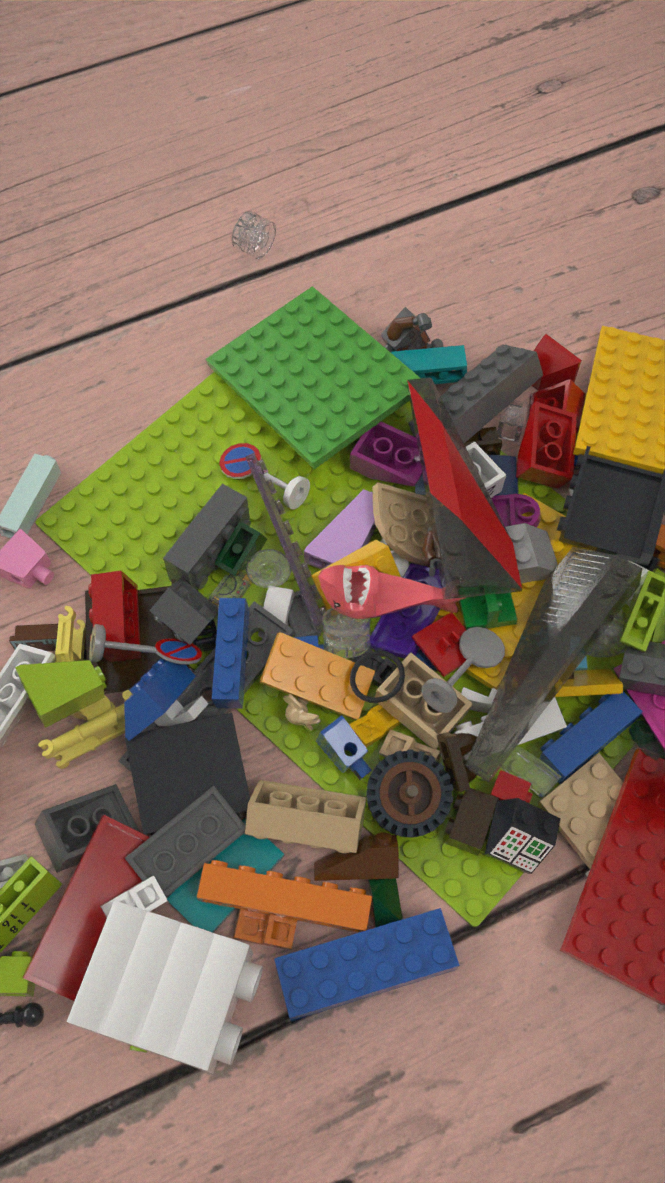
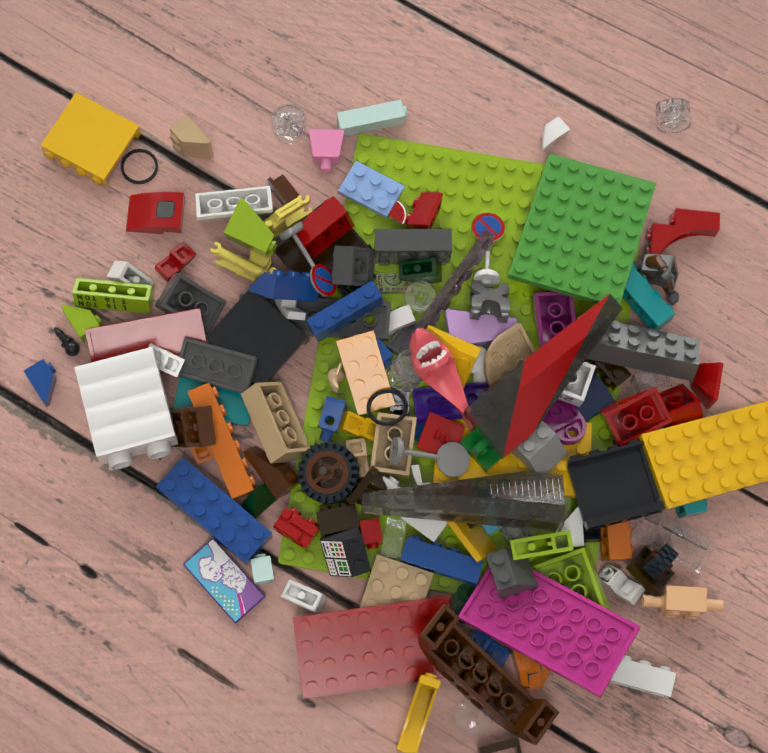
camera: 50 degrees right, 10 degrees up
(20, 812) = (176, 261): none -> red slope
(43, 1082) = (43, 380): none -> blue slope
(108, 545) = (371, 189): none -> light blue plate
(157, 535) = (398, 213): none -> red tile
(177, 502) = (425, 211): none -> red slope
(185, 345) = (553, 131): none -> white slope
(248, 914) = (193, 426): none -> reddish brown slope
(327, 502) = (489, 301): none -> dark grey piece
(369, 294) = (682, 224): none -> red arch
(451, 875) = (296, 528): none -> red brick
(459, 1010) = (224, 580): none -> tile
(476, 951) = (262, 569): none -> light aqua brick
(535, 923) = (303, 596): none -> white slope

